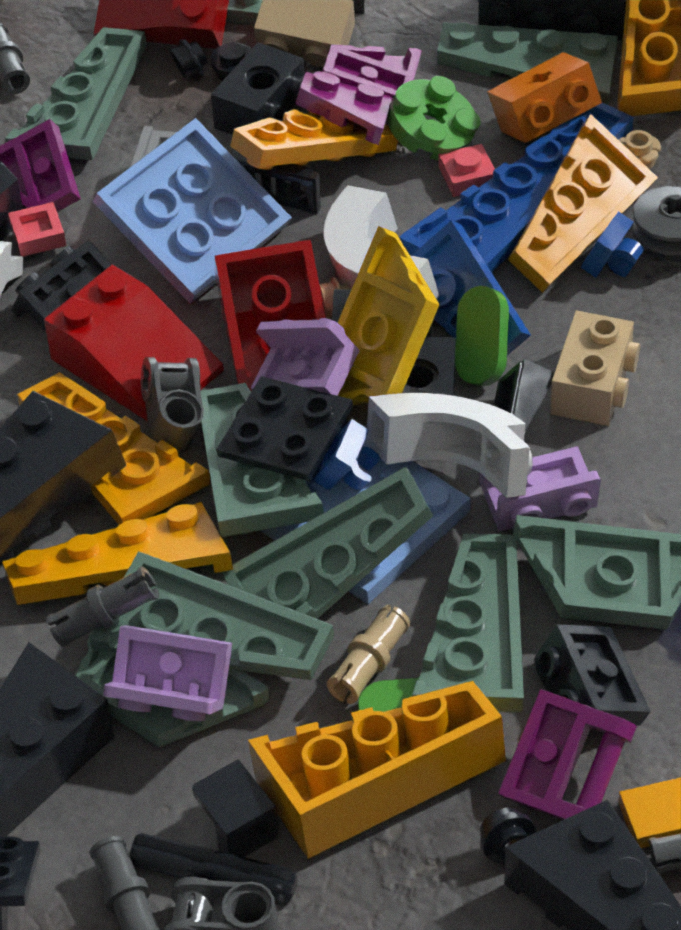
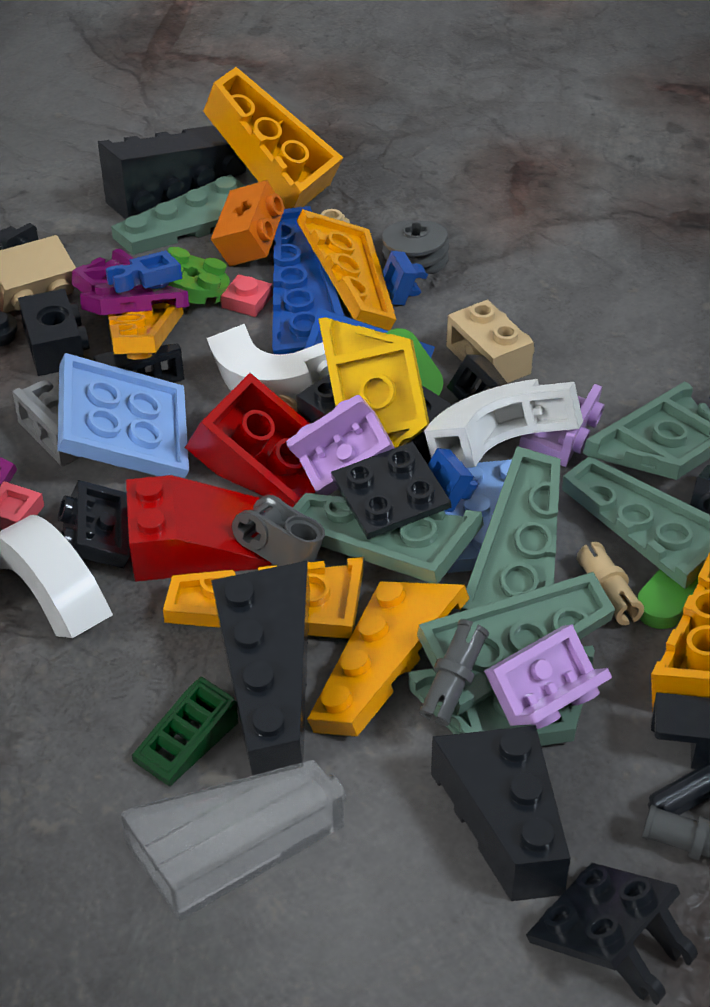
camera: 50 degrees left, 5 degrees down
(368, 87) = (150, 271): none -> blue plate

